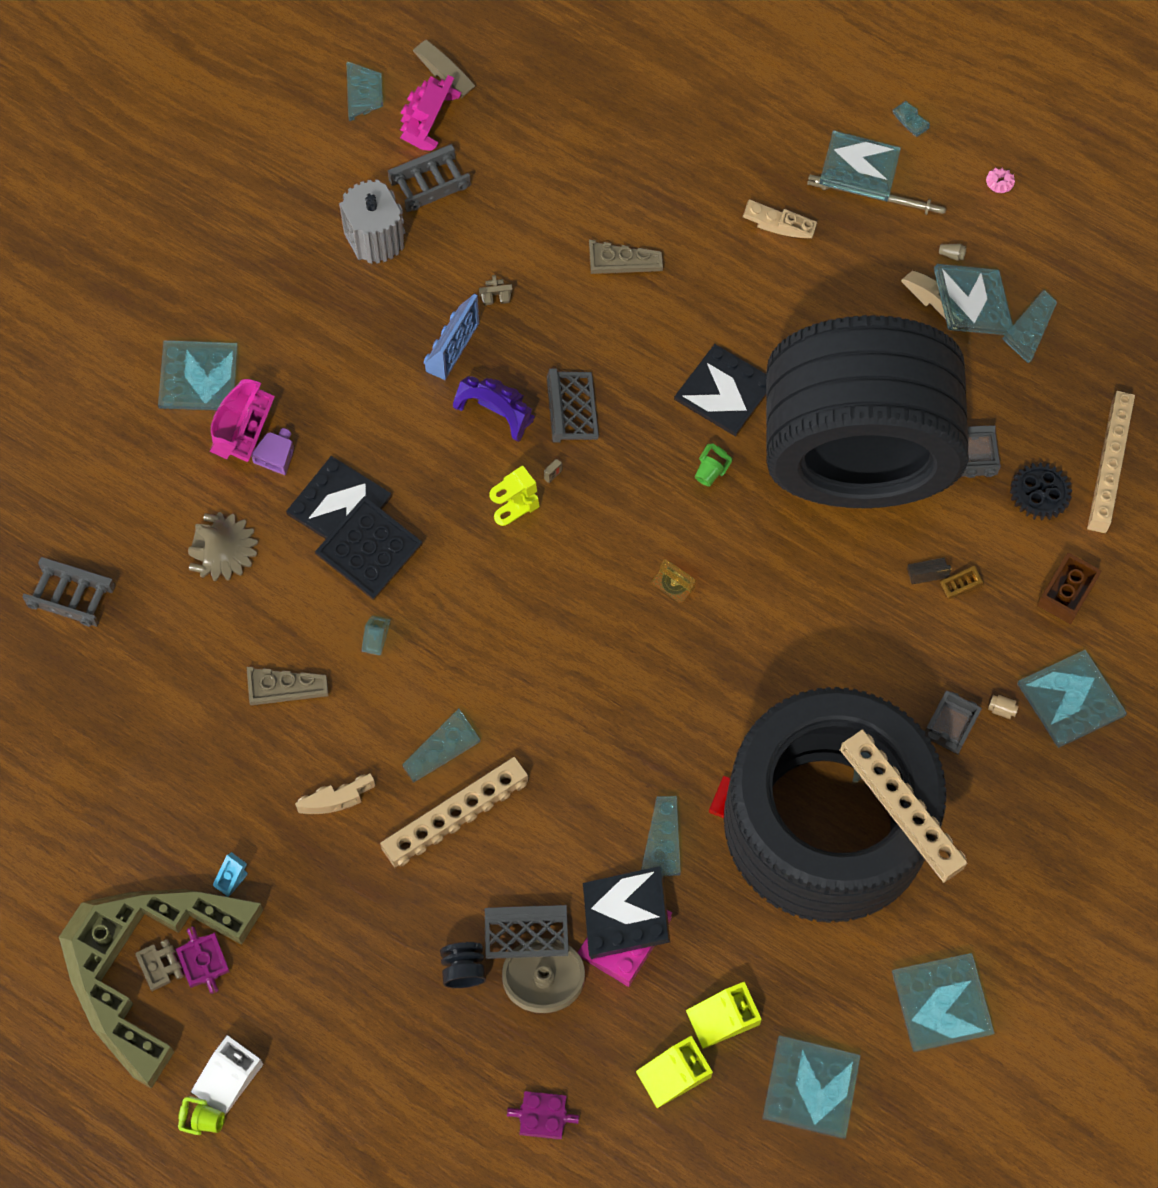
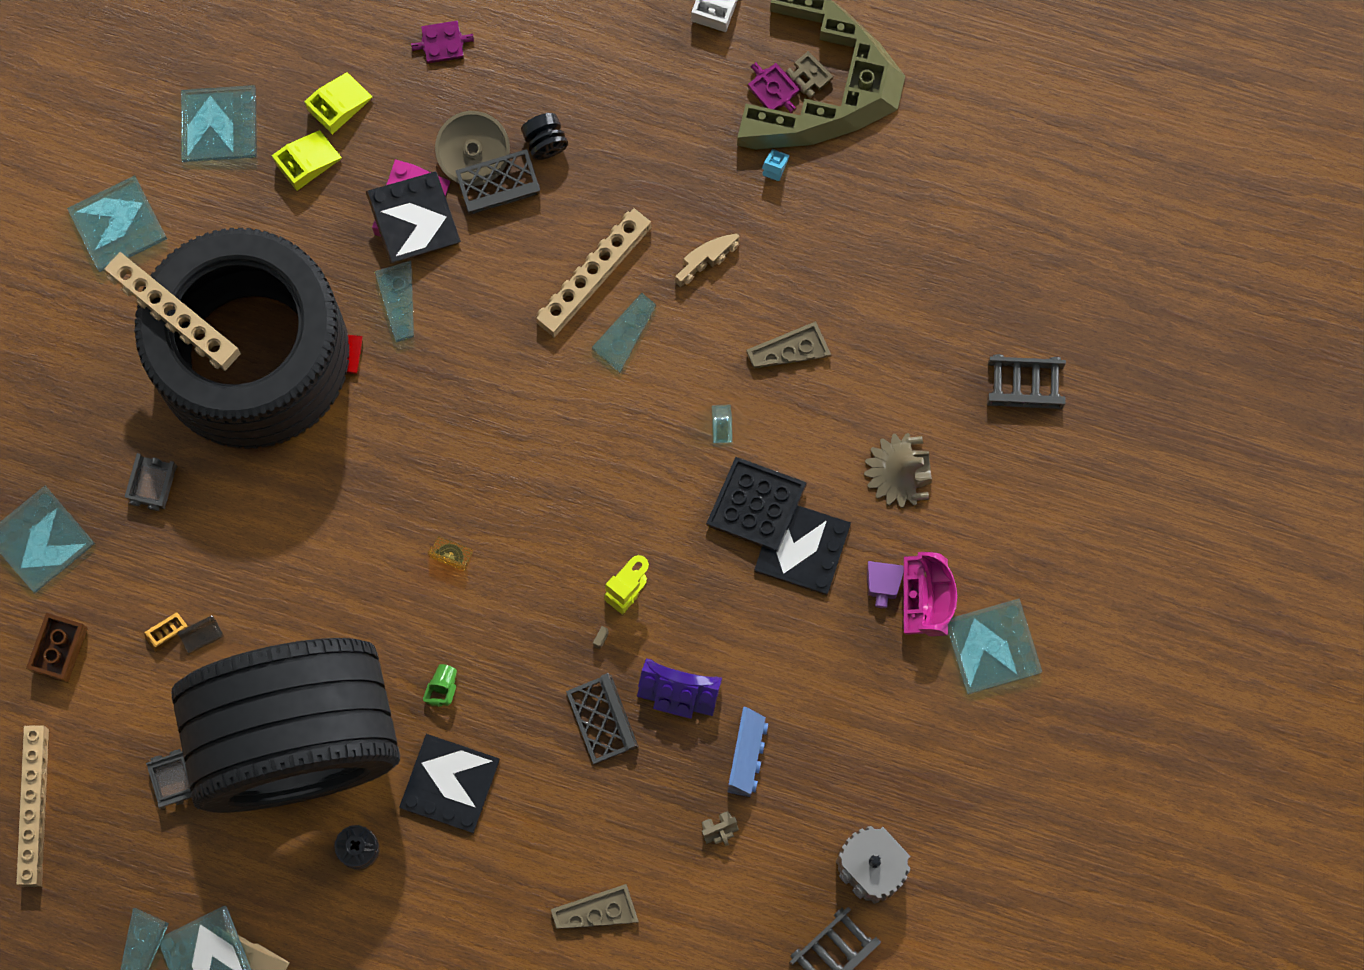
camera: 165 degrees right, 10 degrees up
(1003, 706) = (104, 510): tan brick -> none
(1041, 491) = (108, 768): black gear -> none

